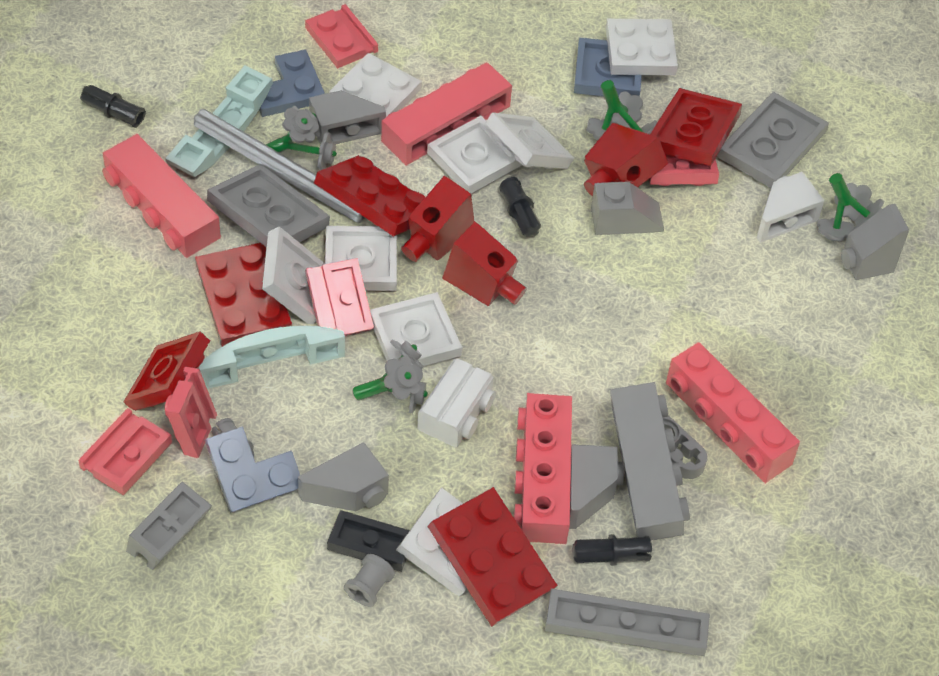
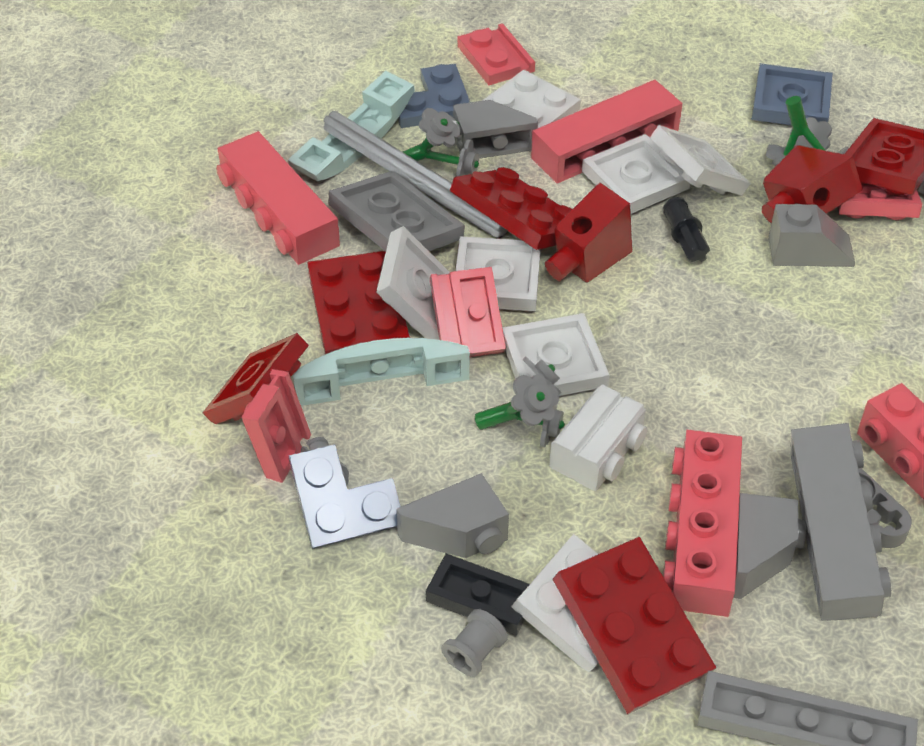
camera: 10 degrees right, 5 degrees down
(113, 105) = (239, 108): black axle -> none
(125, 451) = (195, 468): coral plate -> none
(167, 524) = (230, 555): light grey hinge -> none
(483, 267) = (639, 287): red torso -> none
(612, 550) = (788, 627): black axle -> none
(641, 47) = (831, 73): white plate -> none

